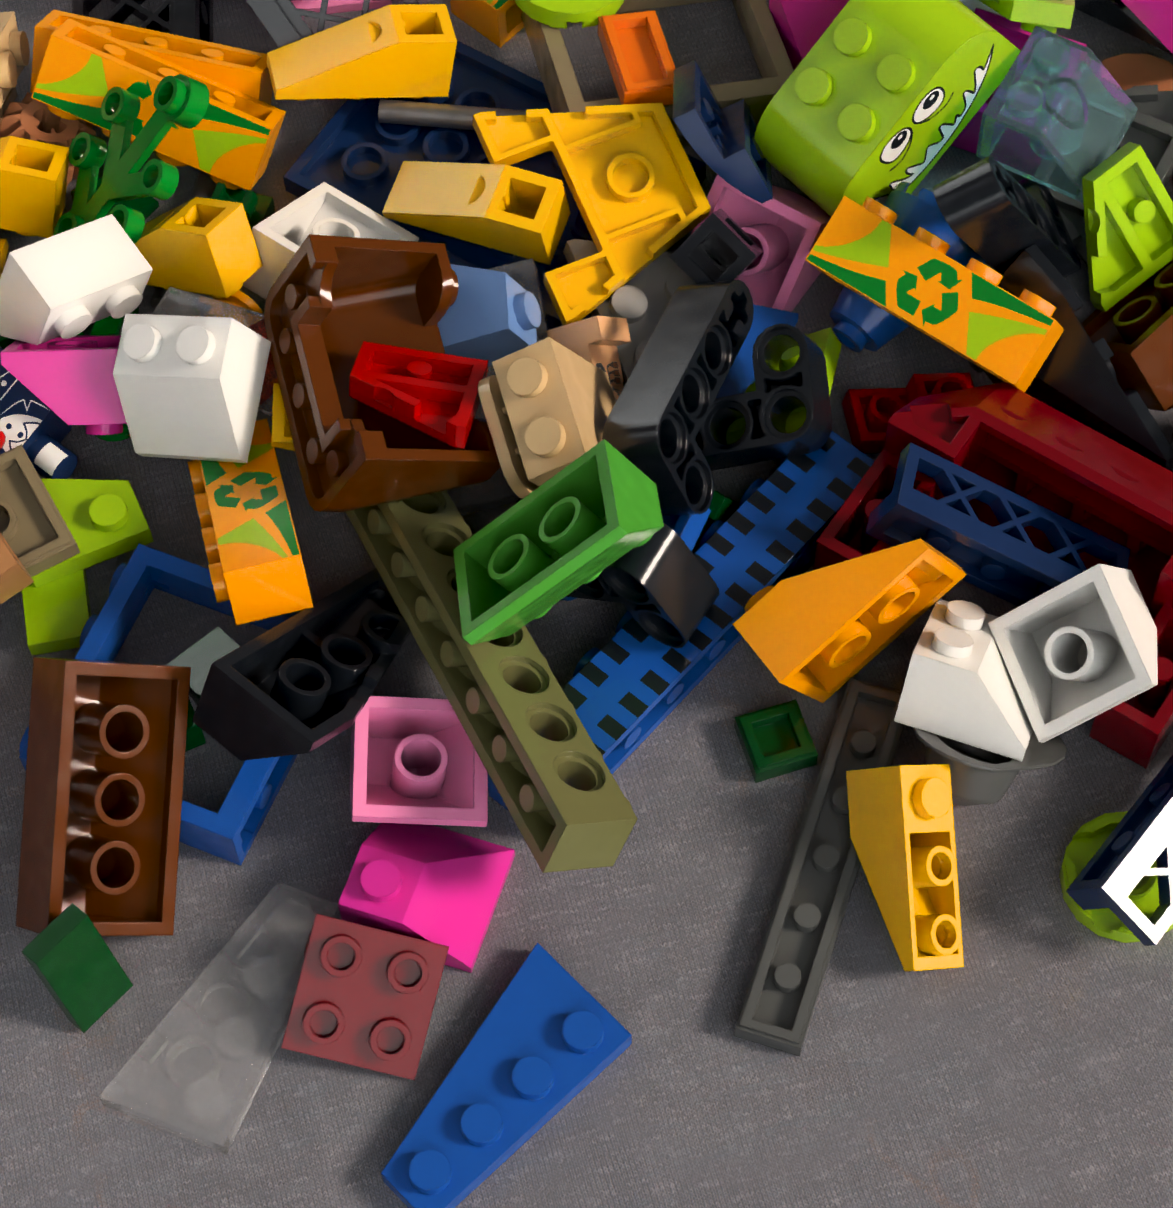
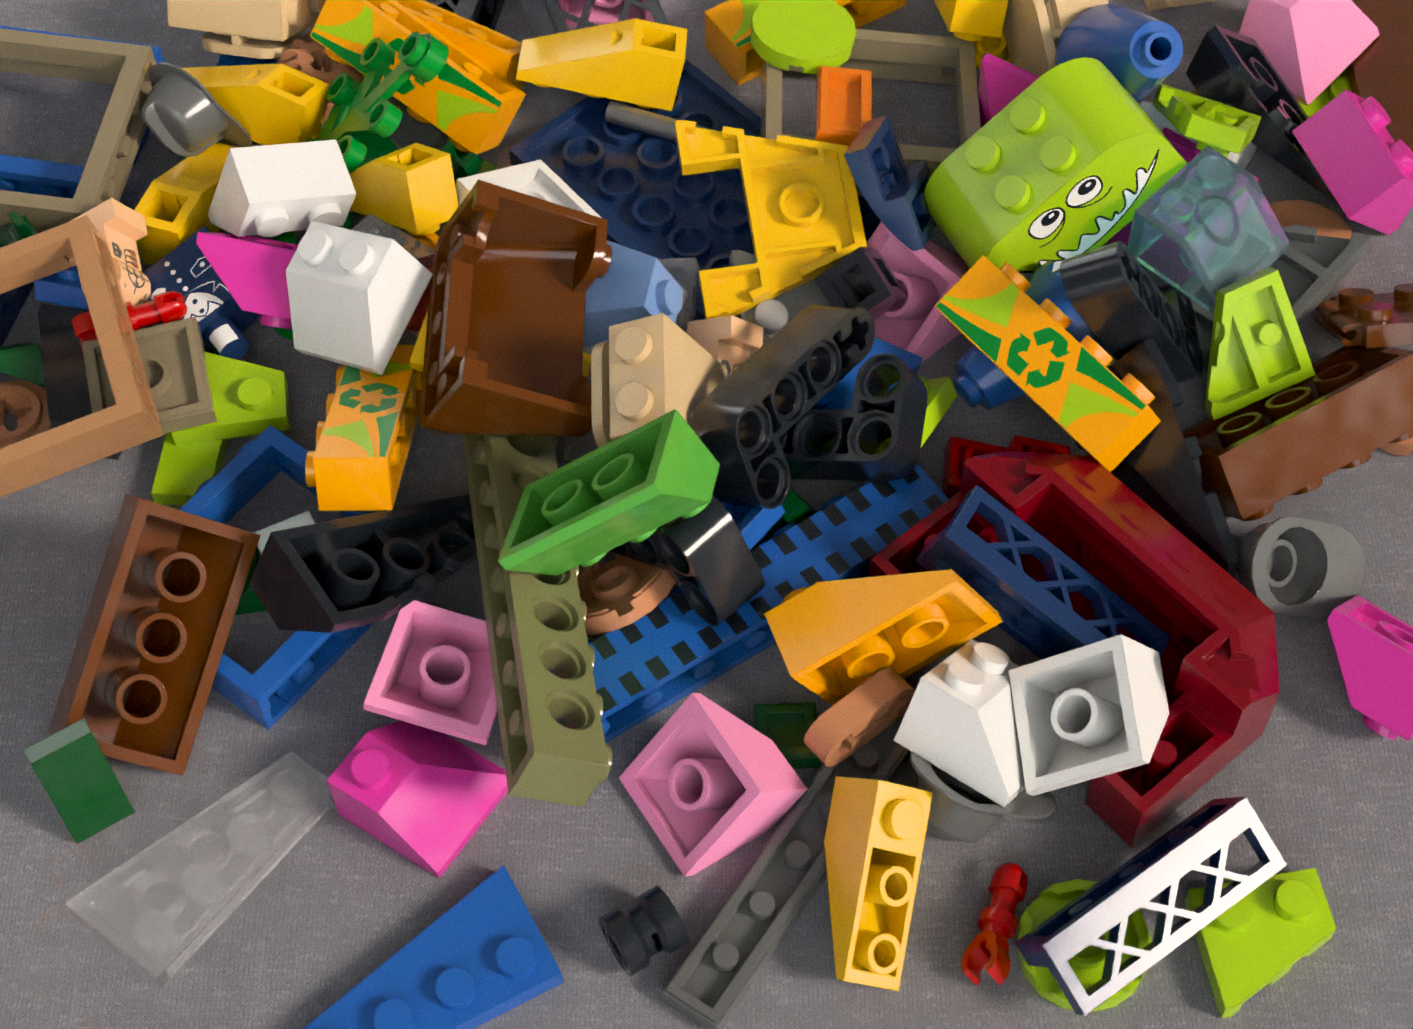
camera: 15 degrees right, 5 degrees down
(365, 996) = (328, 873): dark red hinge -> none
(420, 388) = (543, 339): red wing -> none
(482, 205) = (669, 206): yellow slope -> none
(576, 634) = (621, 592): none -> nougat tile
(700, 972) = (643, 930): none -> black wheel
(718, 809) = (710, 784): none -> bright pink slope
(849, 705) = (859, 717): none -> nougat beam
(1040, 876) = (997, 925): none -> red piece

